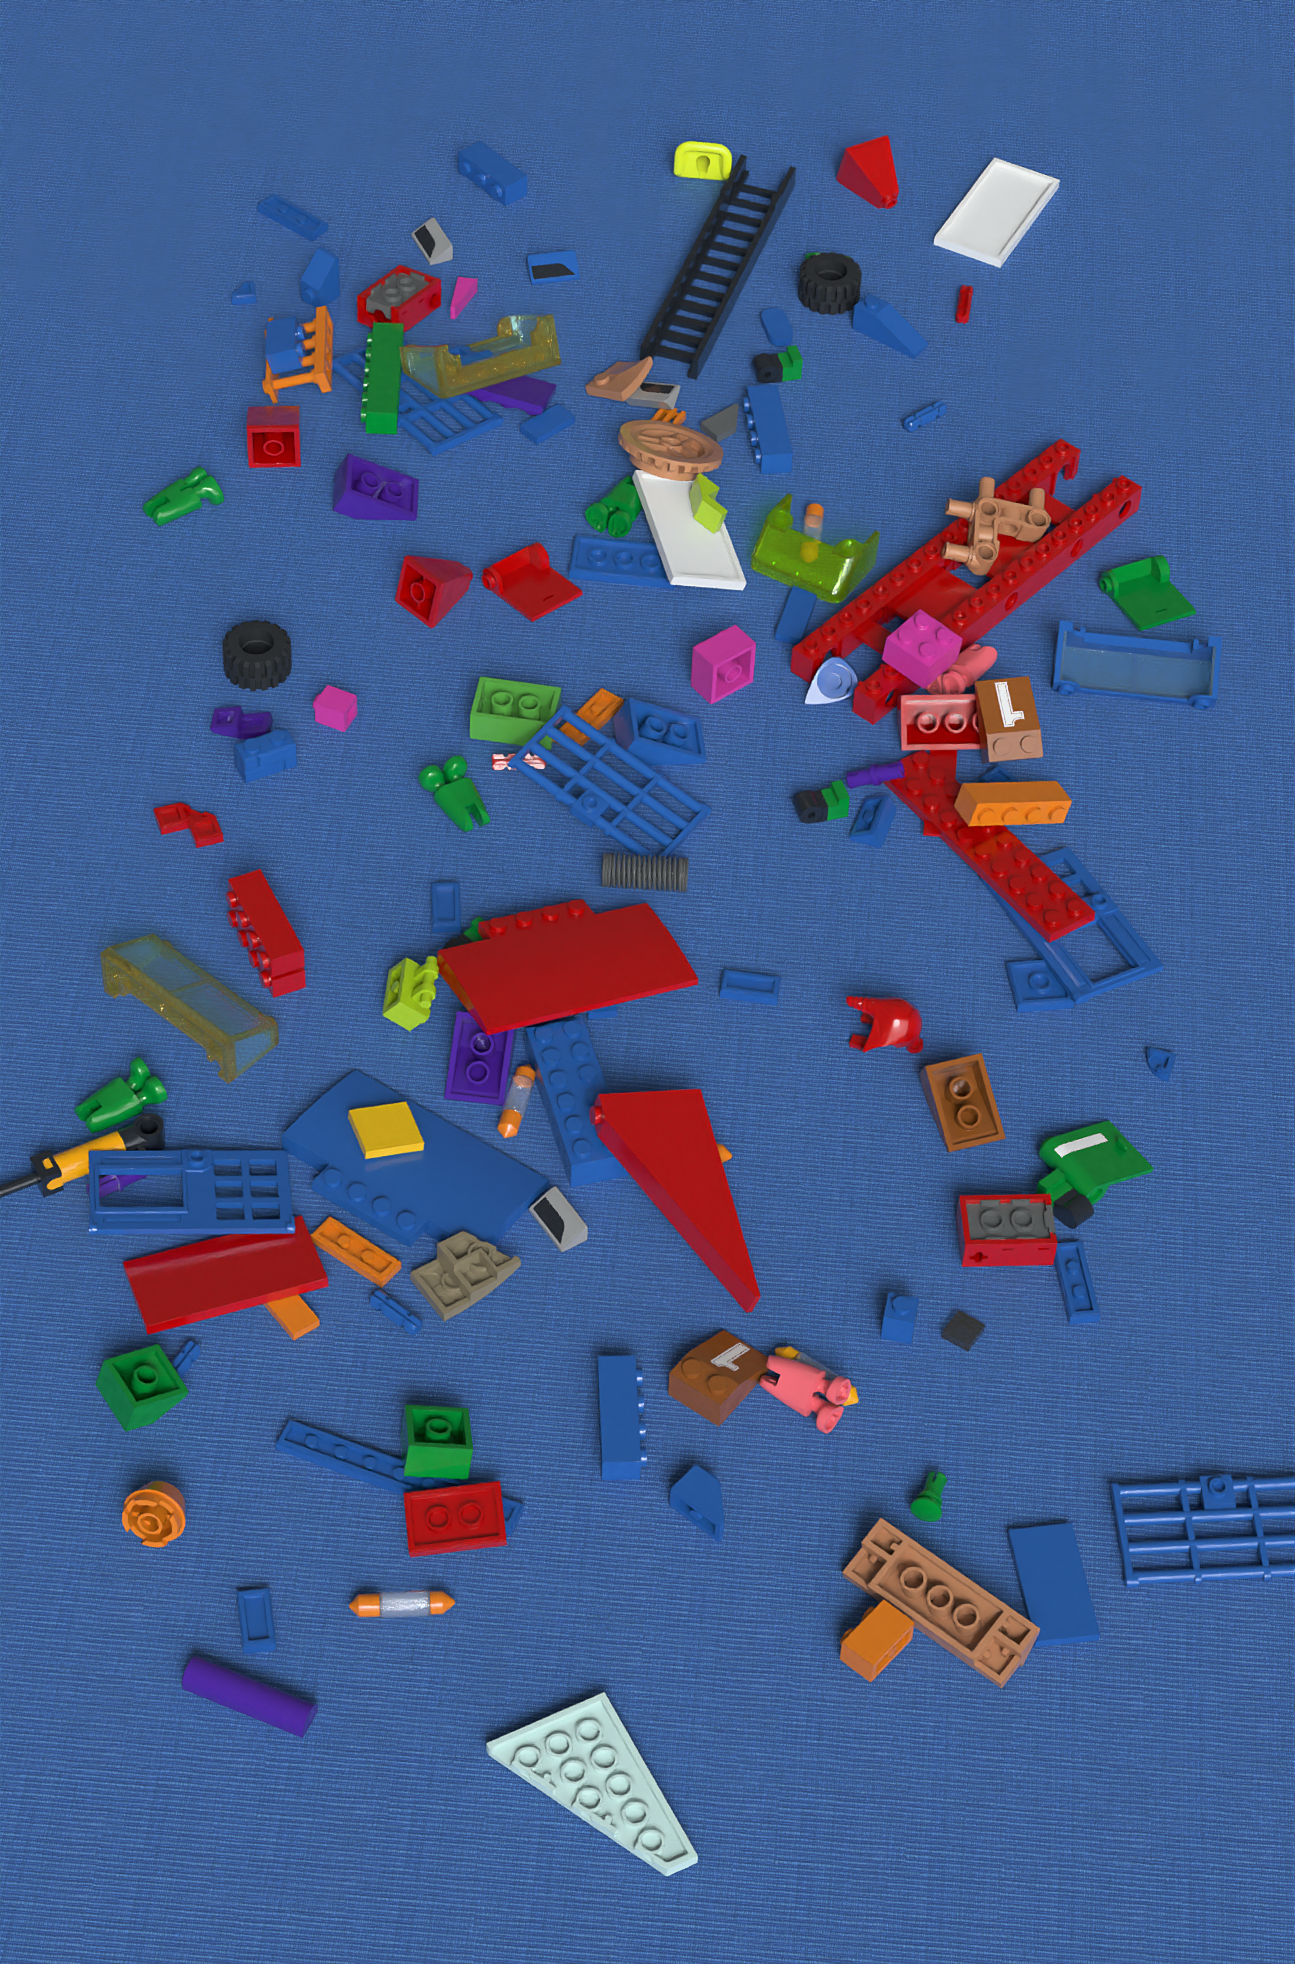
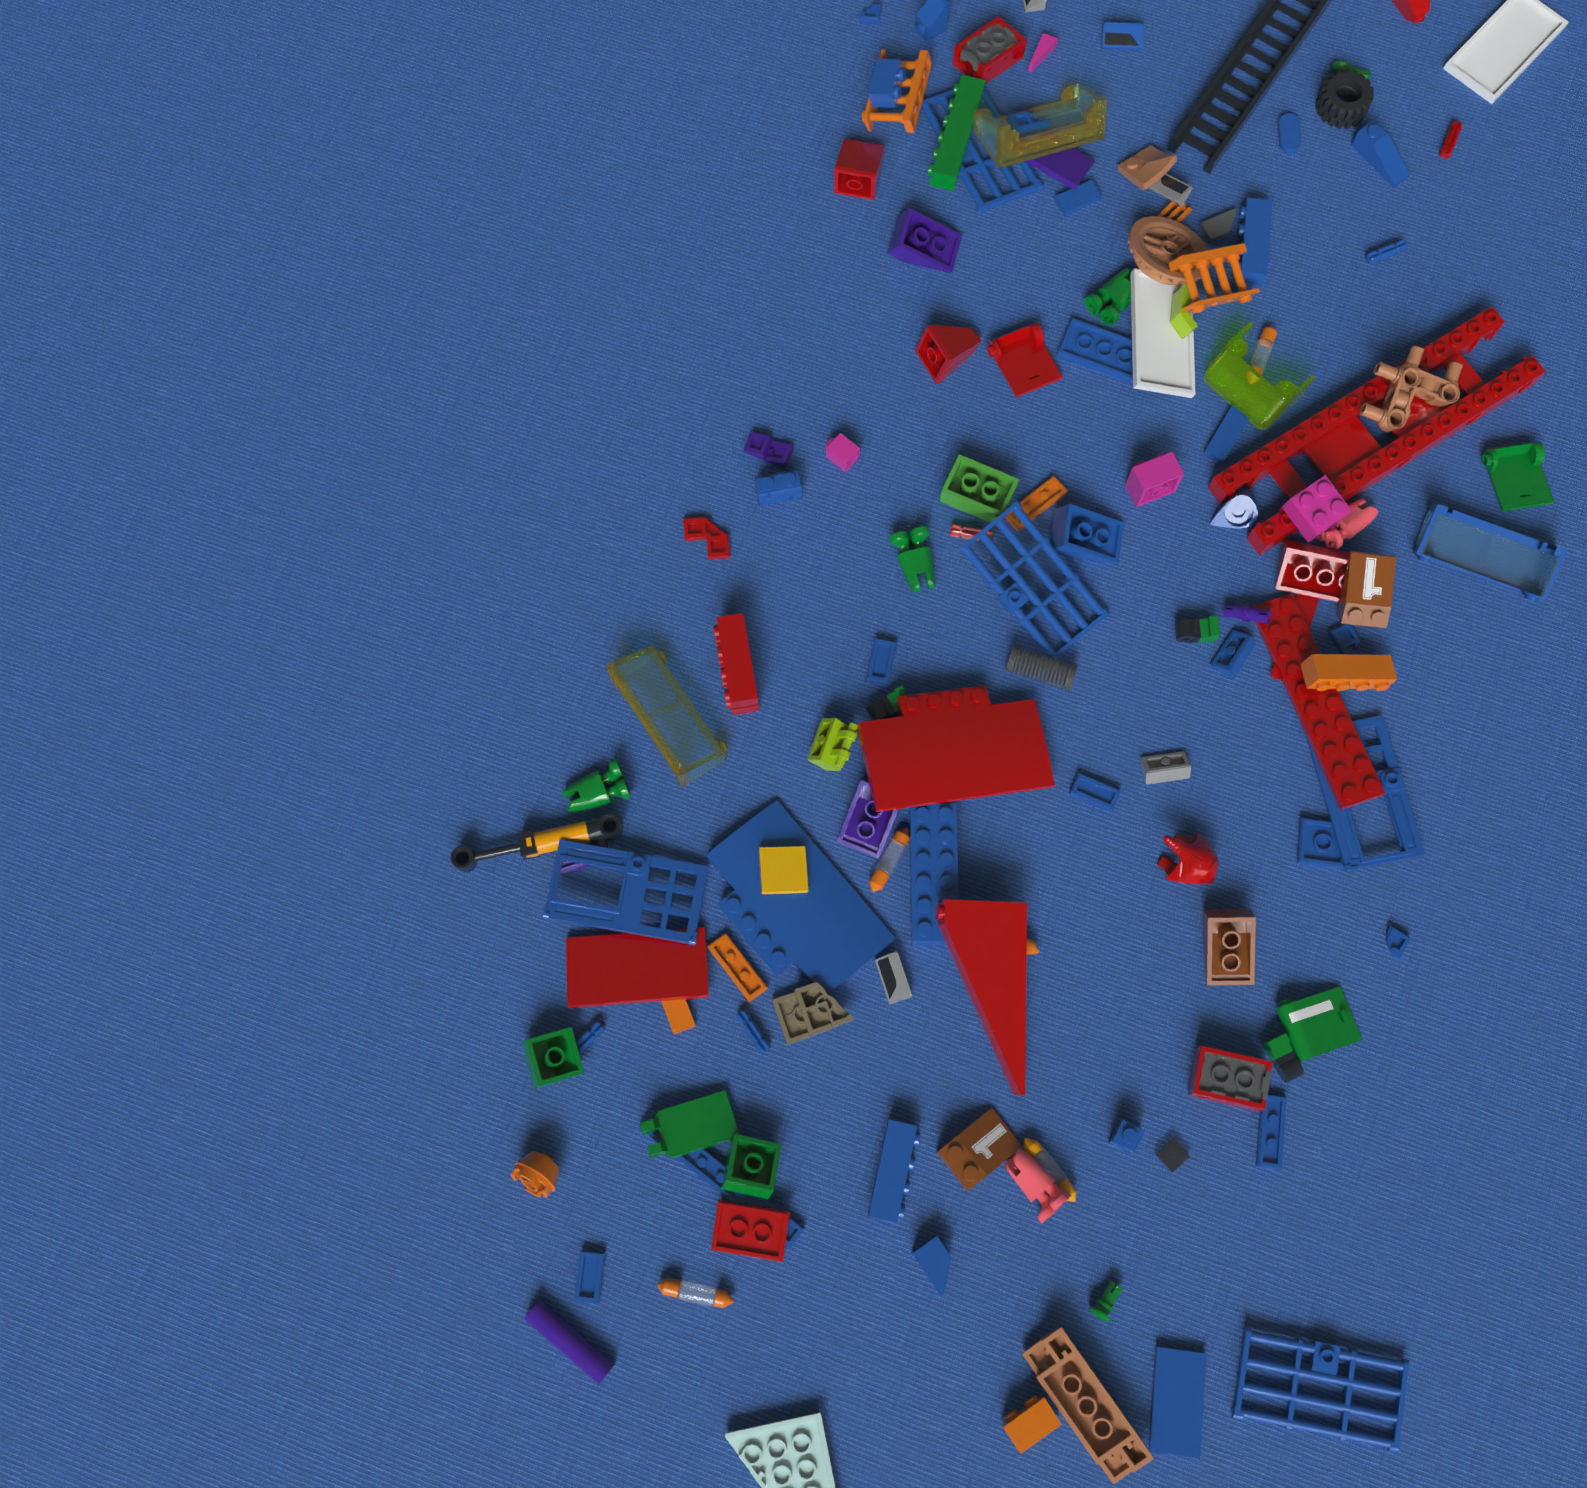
camera: 20 degrees right, 25 degrees up
(183, 497) = (770, 219): green piece -> none
(257, 655) = (794, 373): black tyre -> none
(343, 1423) = (692, 1126): none -> green tile
(731, 441) = (1216, 258): none -> orange fence
(779, 366) = (1279, 177): leg -> none
(828, 947) = (1165, 767): none -> light grey slope

